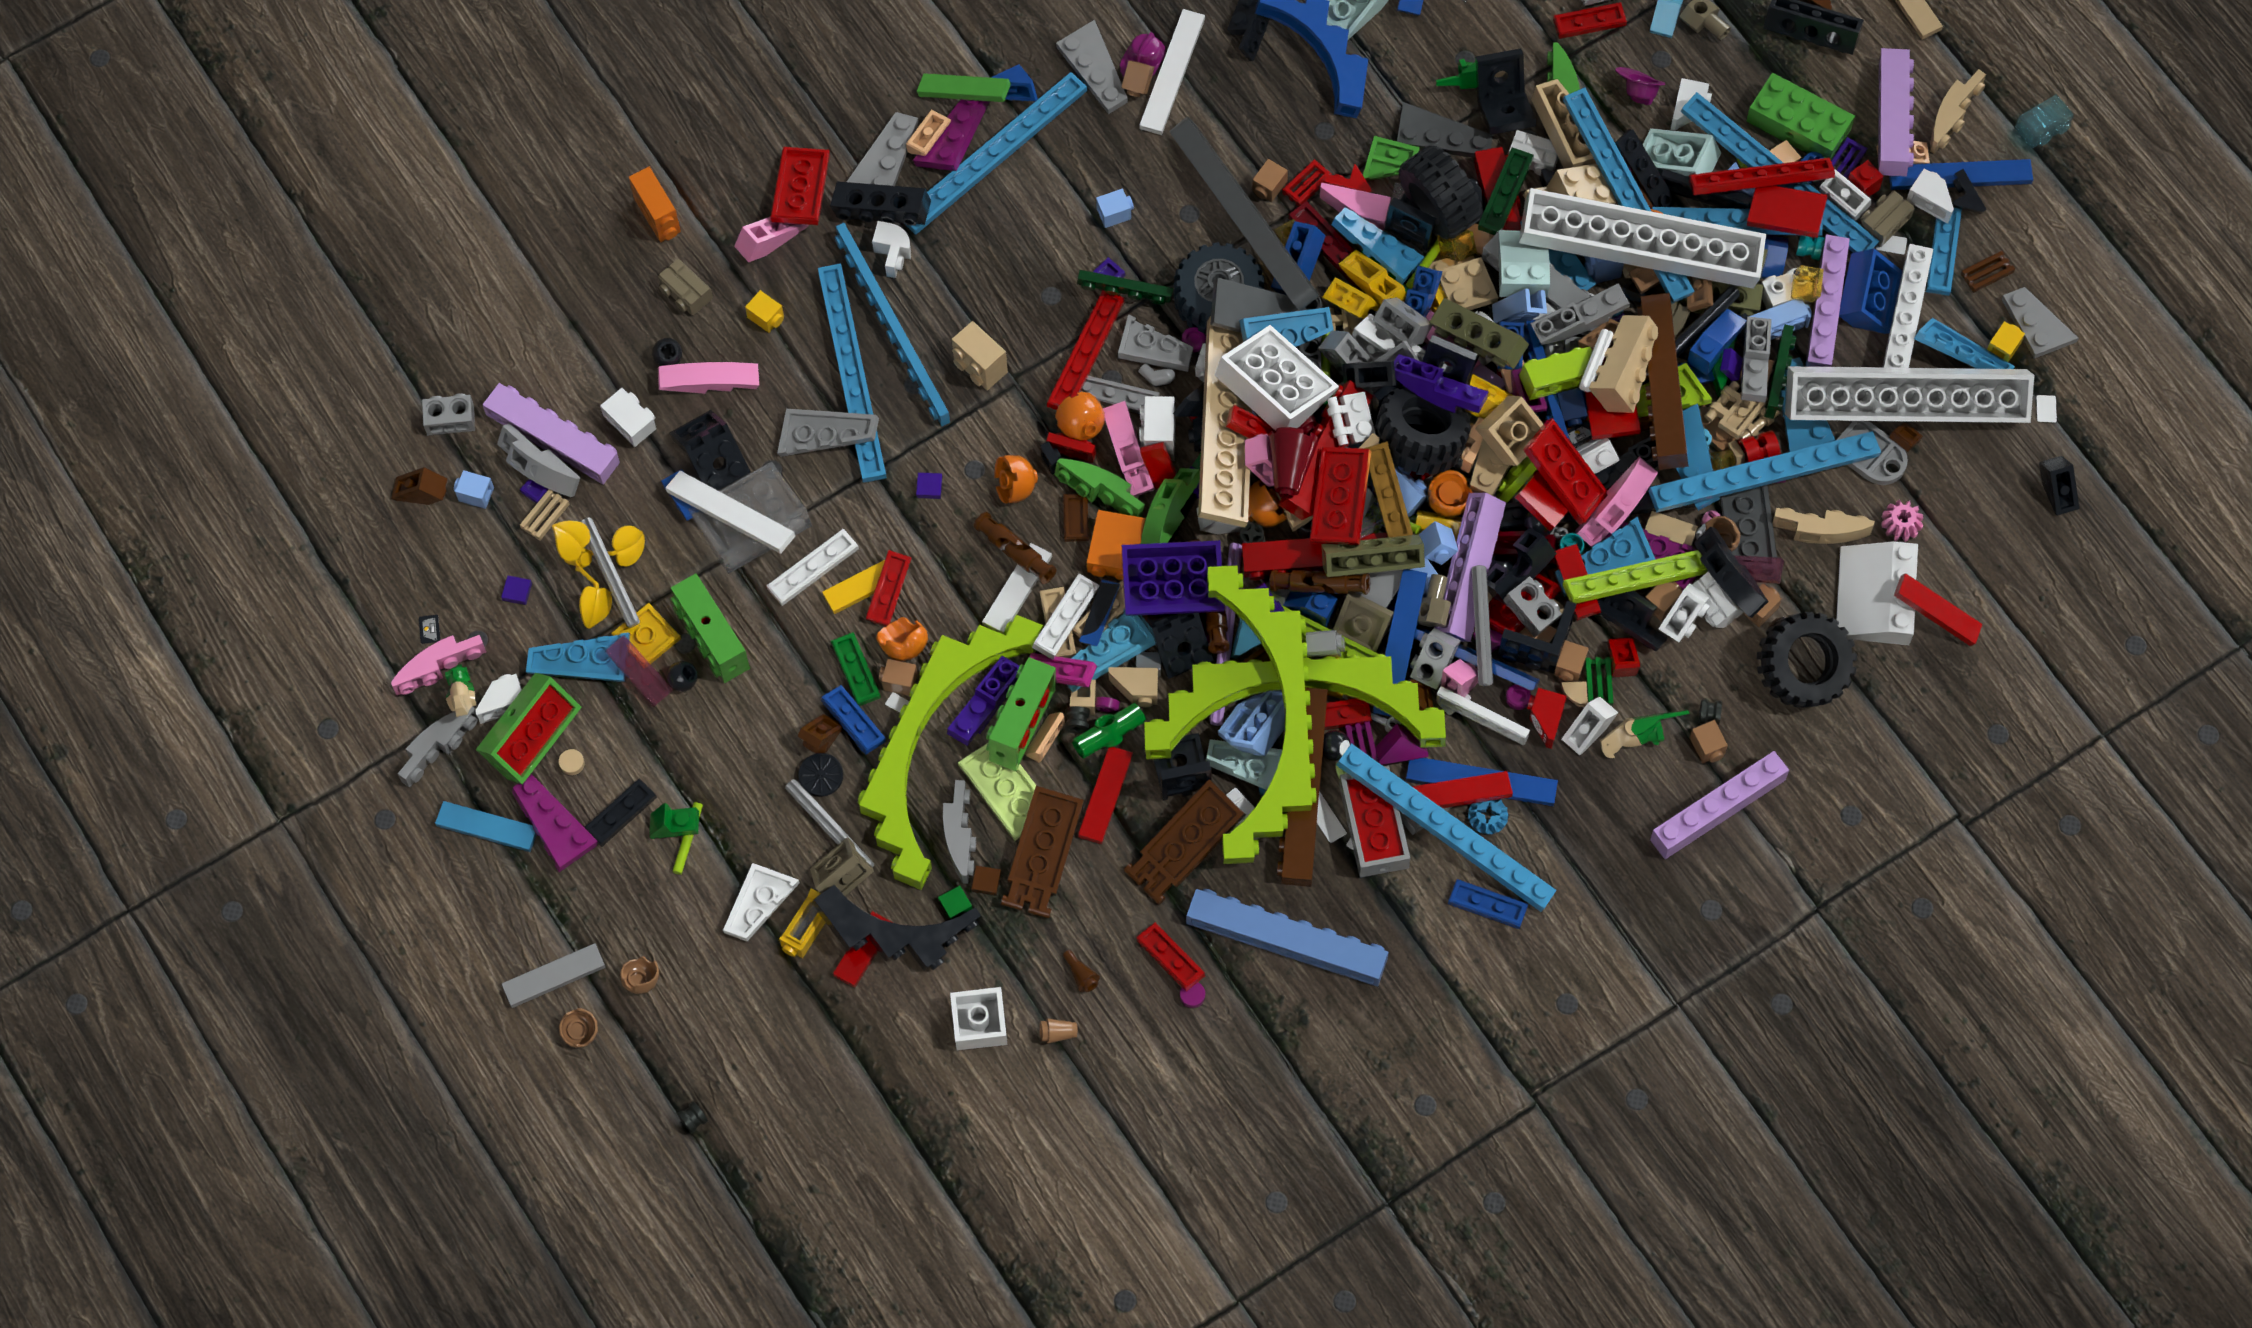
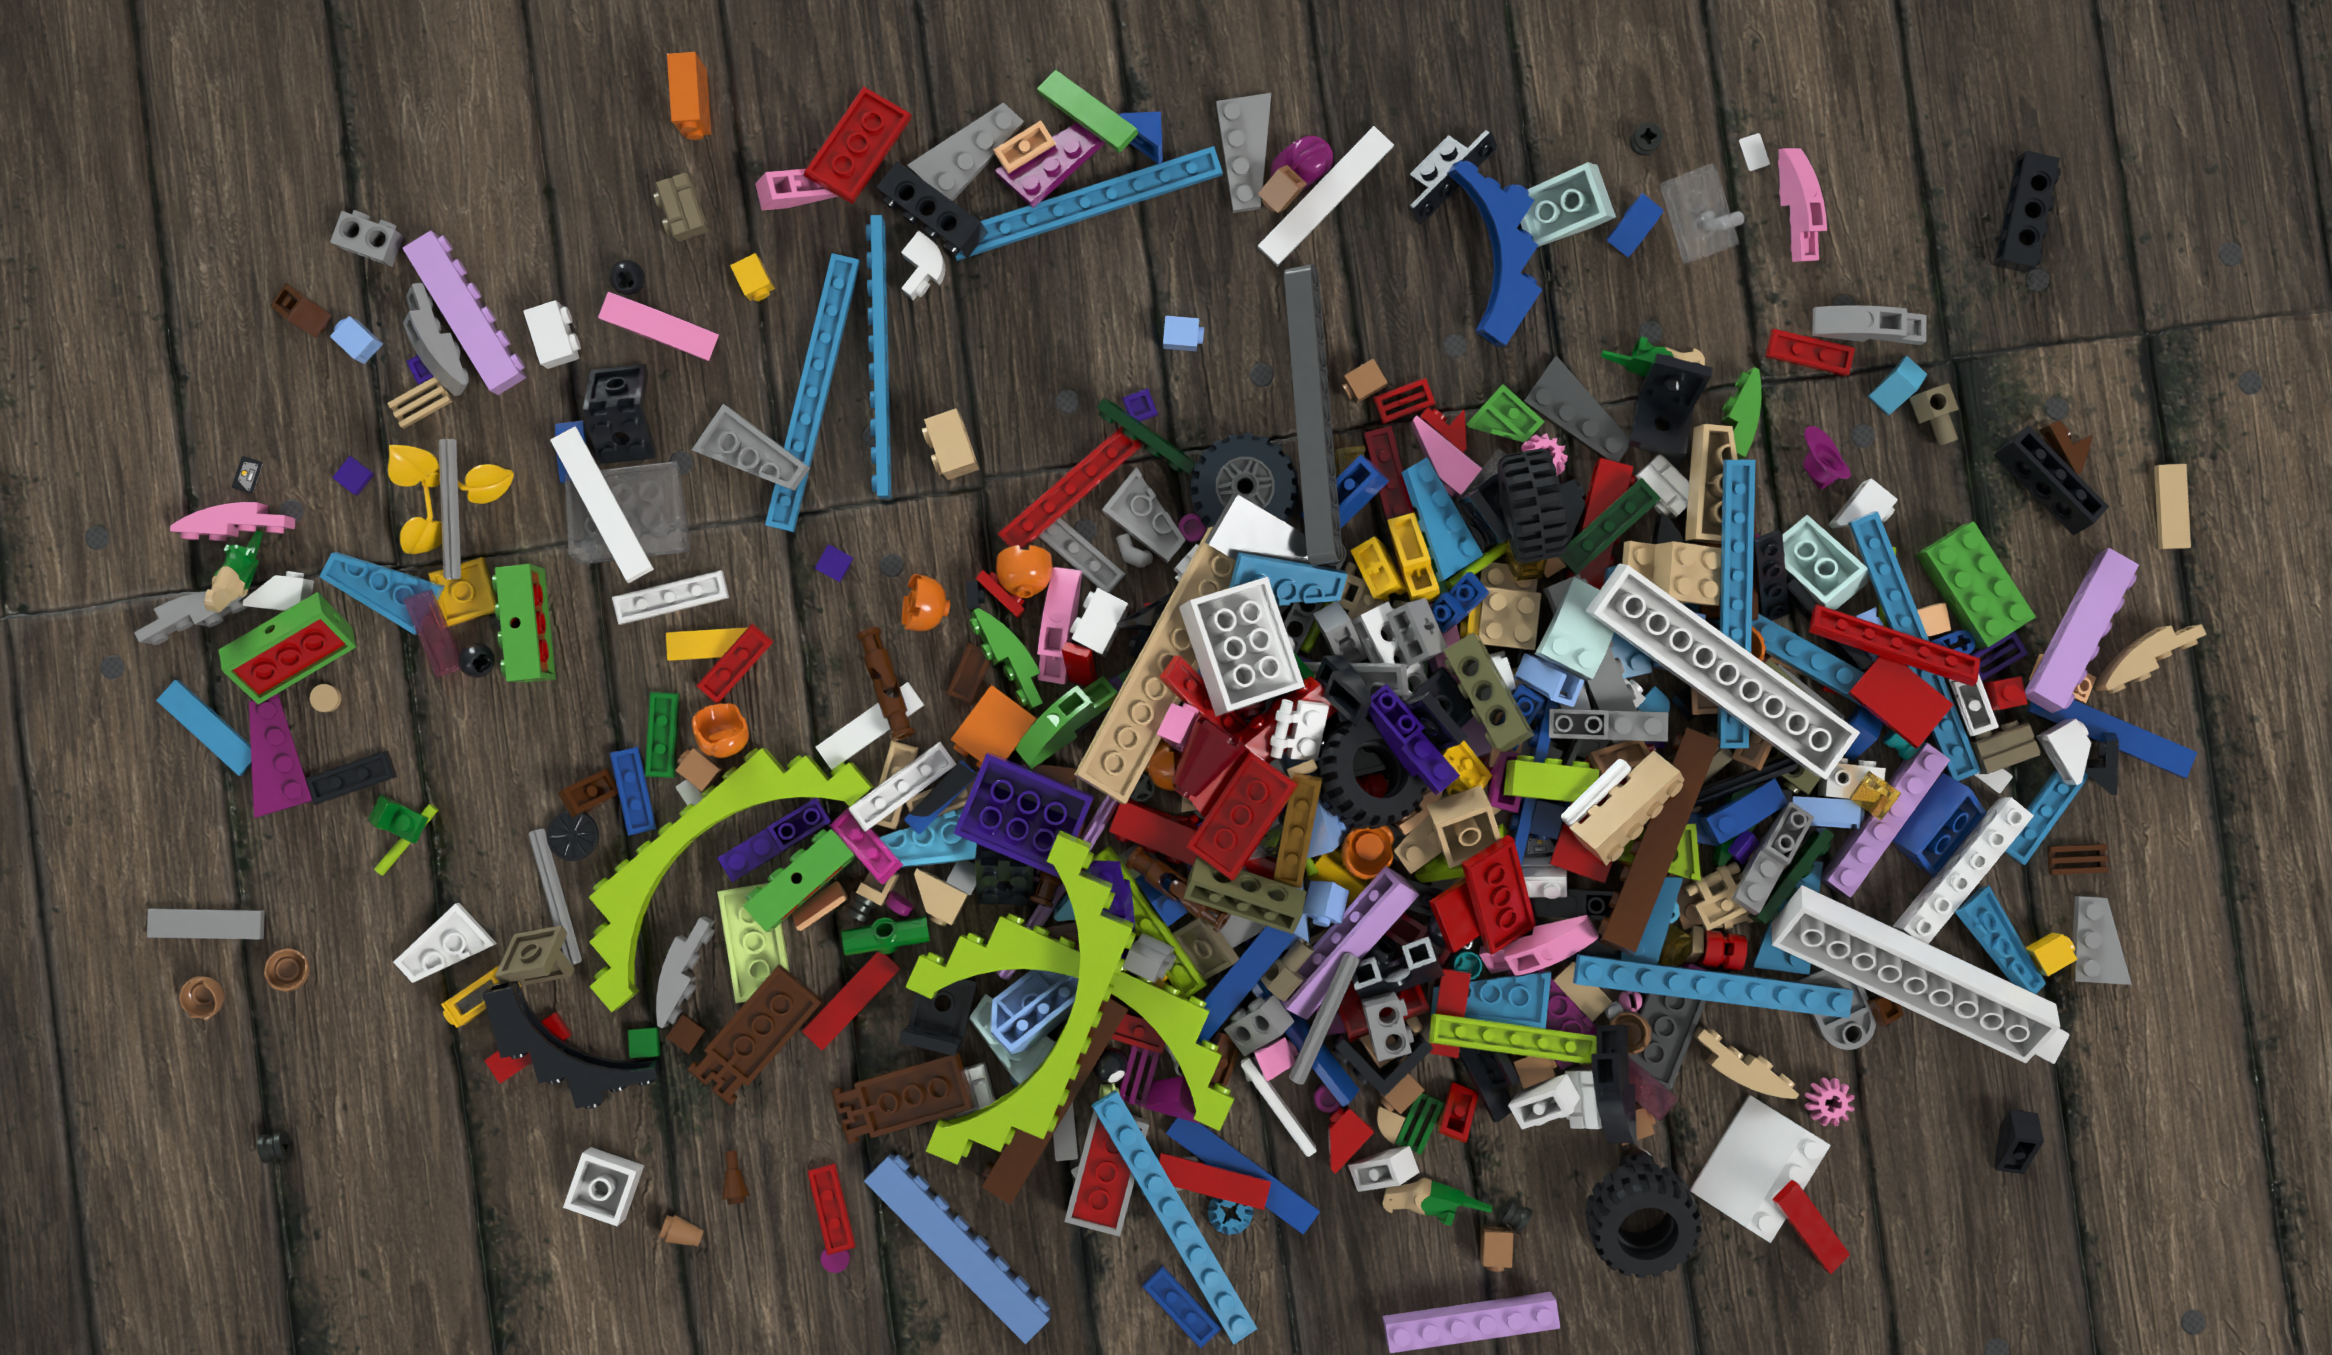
camera: 25 degrees right, 20 degrees up
(2044, 122) = (2238, 716): clear light blue brick -> none

